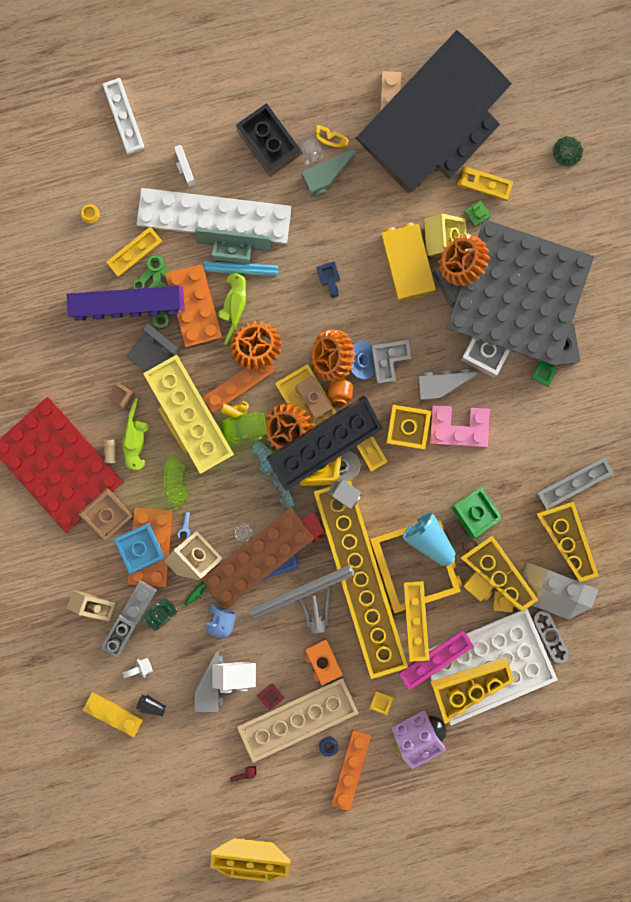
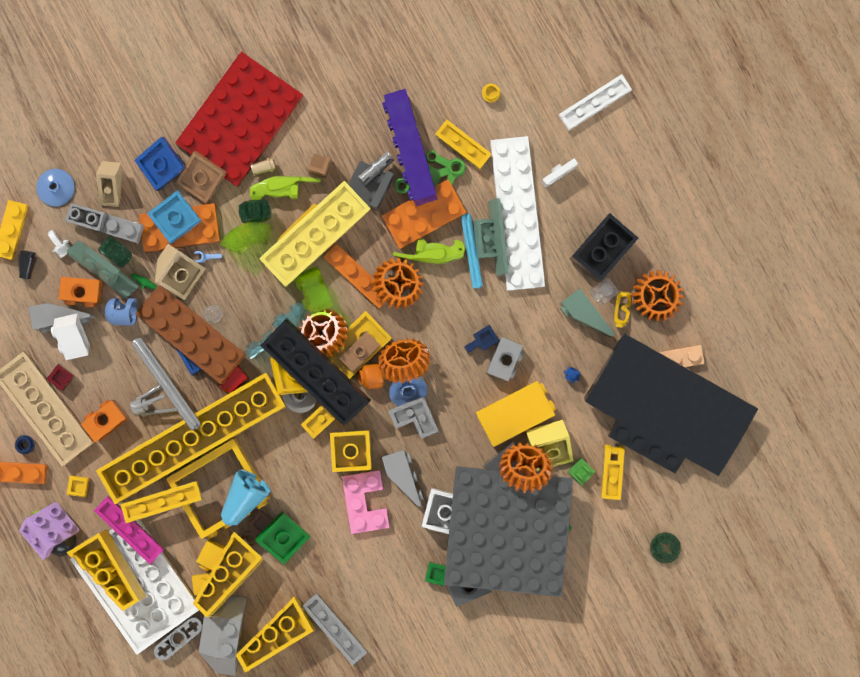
camera: 70 degrees right, 0 degrees up
(82, 551) = (160, 163): none -> blue plate
(90, 658) = (63, 192): none -> medium blue dish
(138, 341) = (376, 168): none -> light grey pin
(152, 468) = (254, 211): none -> clear green gear
(173, 631) = (102, 269): none -> sand green bracket
(182, 665) = (69, 291): none -> orange brick
(236, 410) = (329, 279): yellow arm -> none
(336, 89) = (668, 282): none -> orange gear
(344, 493) = (269, 403): light grey brick -> none
(359, 270) = (509, 348): none -> light grey brick
(383, 200) = (572, 374): none -> blue plate

